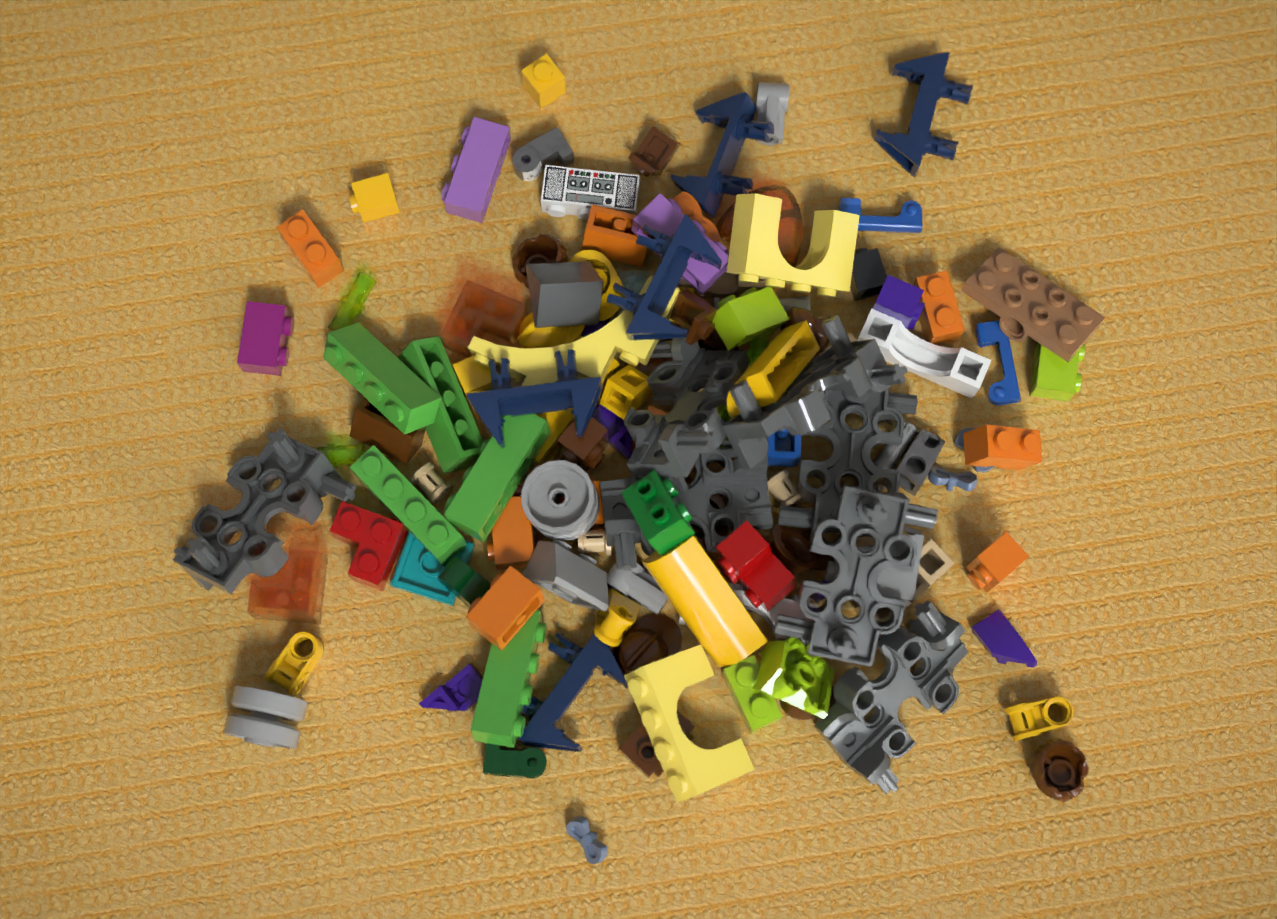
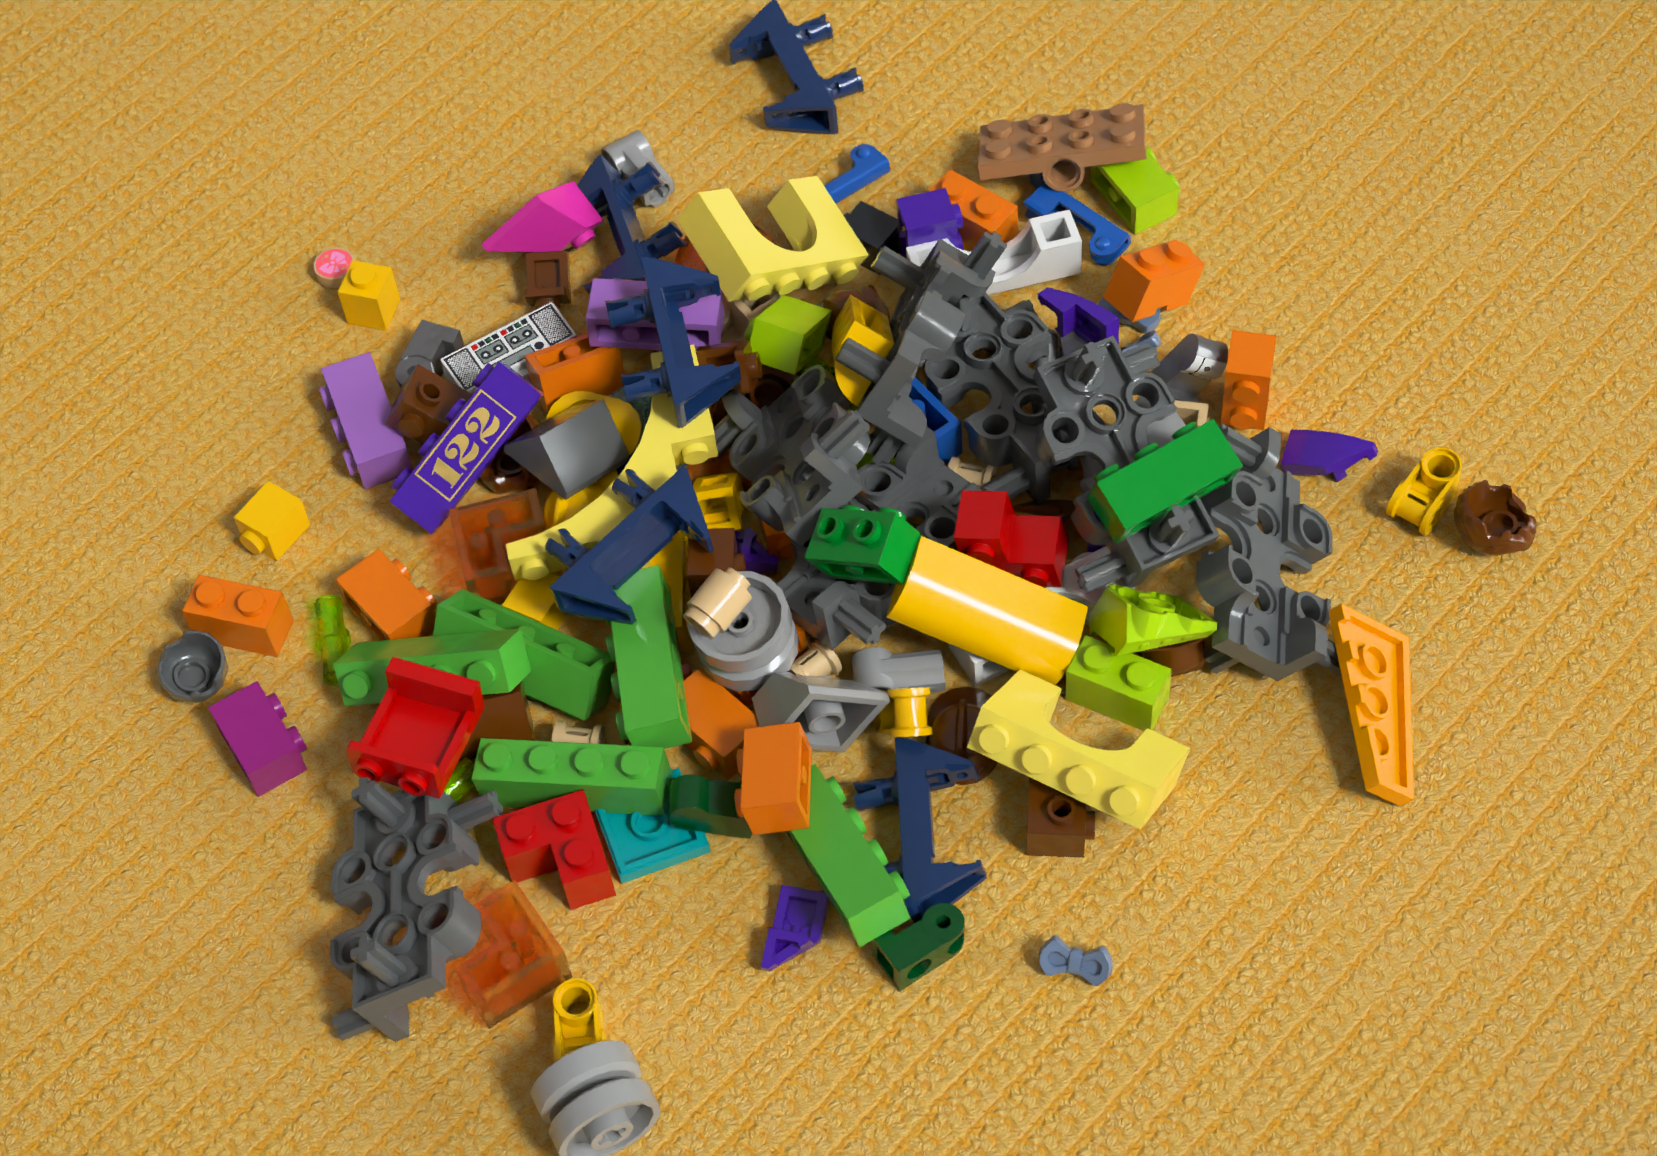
camera: 30 degrees left, 20 degrees down
(261, 264) = (193, 667): none -> dark grey hair
(333, 421) = (418, 729): none -> red panel
(398, 306) = (386, 599): none -> orange brick
(509, 244) = (466, 447): none -> dark purple brick
(514, 205) = (419, 414): none -> reddish brown brick
(543, 41) = (332, 266): none -> tile
(548, 483) = (718, 602): none -> tan brick
(680, 118) = (548, 223): none -> dark pink slope
(861, 615) = (1163, 478): none -> green brick
(890, 822) = (1378, 696): none -> light orange wing
(928, 435) = (1083, 316): none -> dark purple slope
(967, 524) = (1192, 366): none -> flat silver leg

